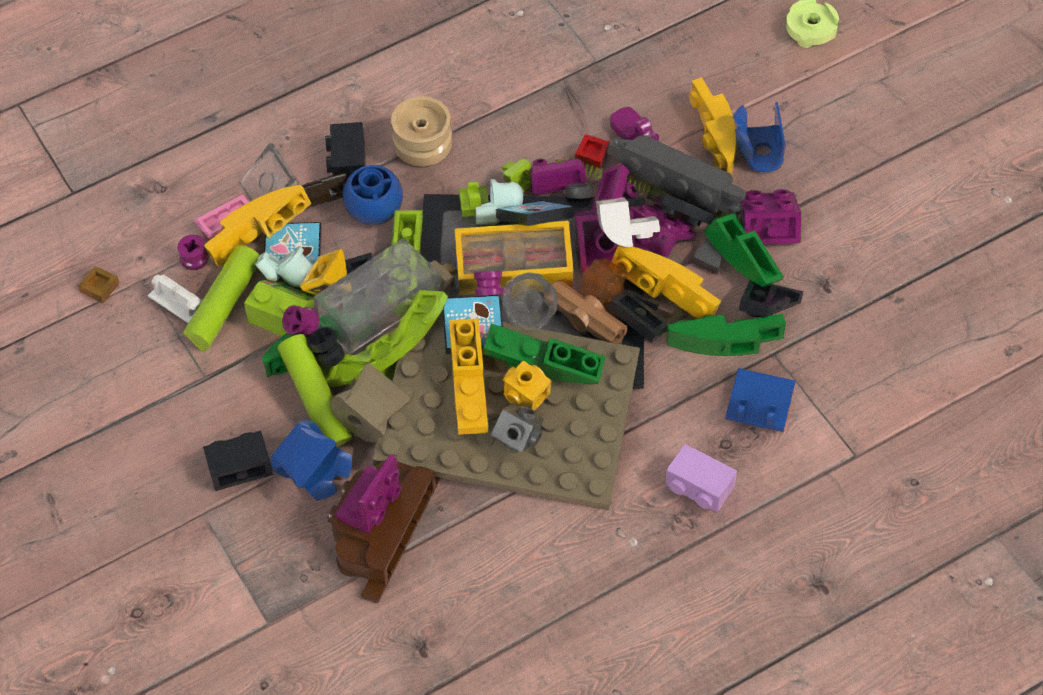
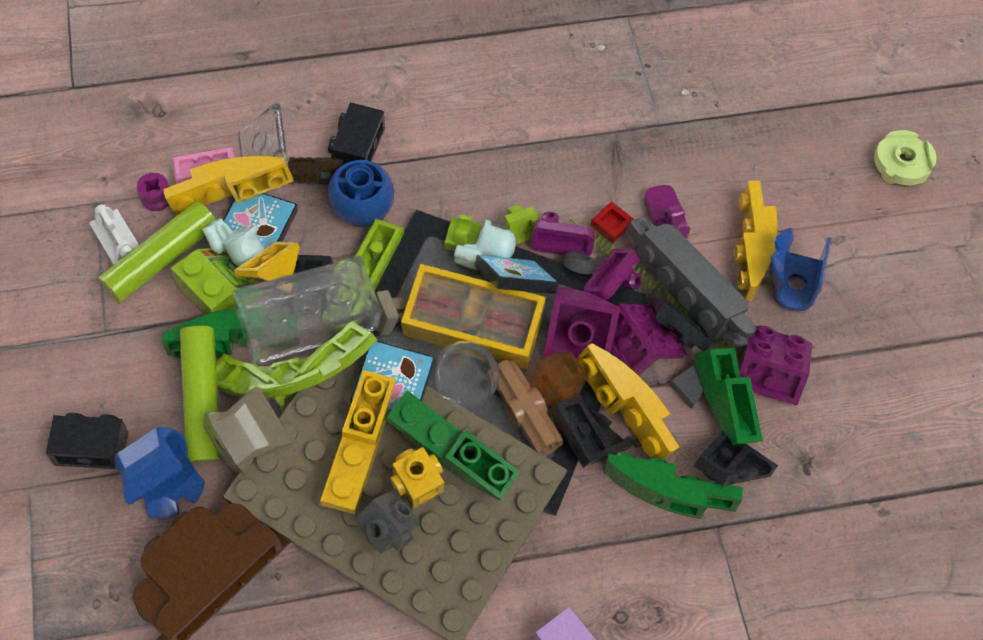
camera: 15 degrees right, 5 degrees up
(98, 284) = (48, 193): pearl gold tile -> none
(300, 320) = (214, 310): magenta wheel -> none
(325, 345) = (231, 354): black wheel -> none
(370, 496) = (191, 546): magenta bracket -> none
(421, 131) = (441, 140): tan wheel -> none
(488, 283) = (428, 339): magenta wheel -> none
(617, 225) = (596, 324): white brick -> none
(760, 400) = (679, 579): blue plate -> none

